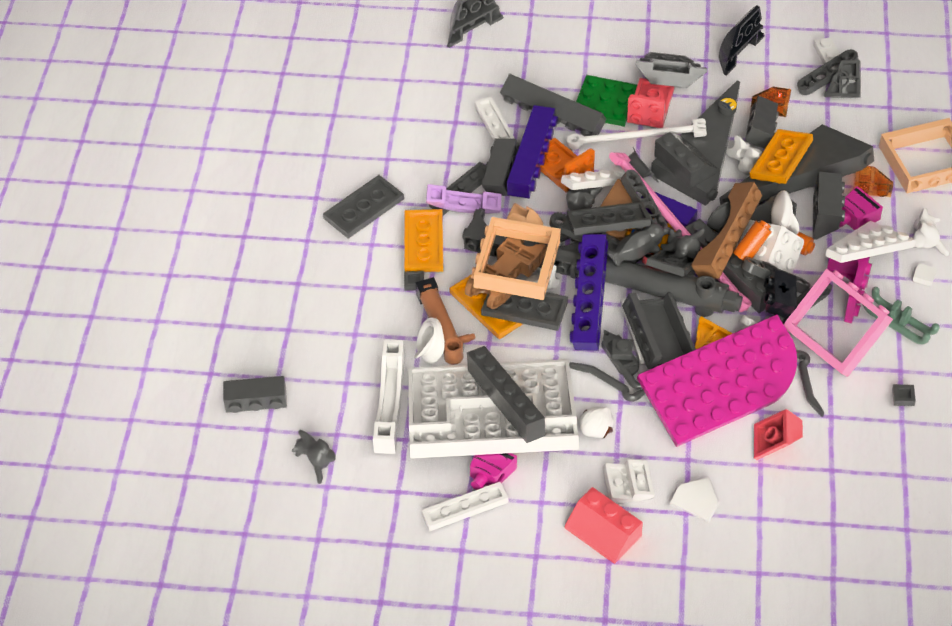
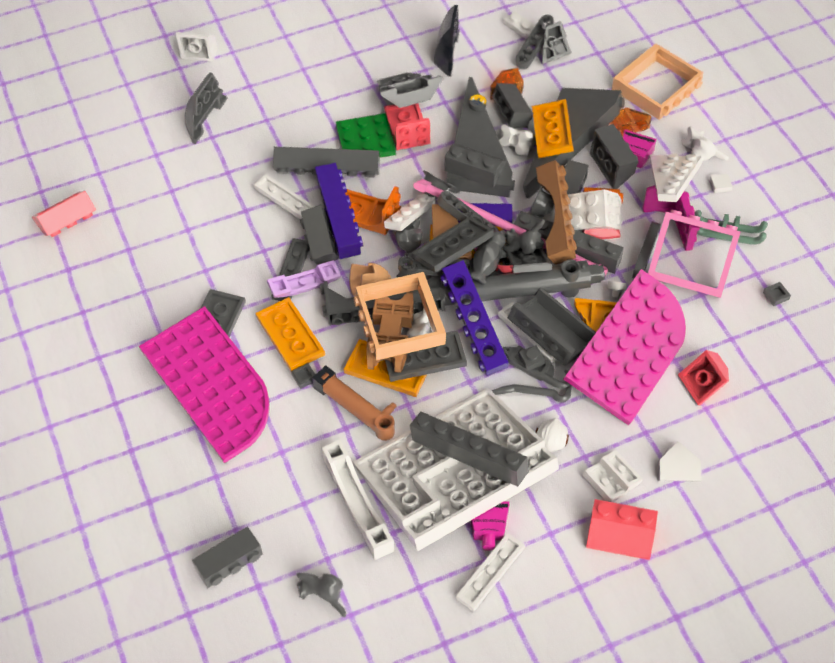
camera: 30 degrees left, 5 degrees up
(297, 63) = (64, 214): none -> slope
(330, 251) = (211, 382): none -> dark pink plate
(430, 341) = (361, 427): white piece -> none
(575, 140) = (465, 130): white hinge -> none
(753, 240) = (585, 212): orange brick -> none
(763, 270) = (615, 234): dark grey beam -> none
(780, 293) = (634, 249): black brick -> none
(782, 212) = (590, 176): white piece -> none
(806, 382) = (696, 320): dark grey piece -> none

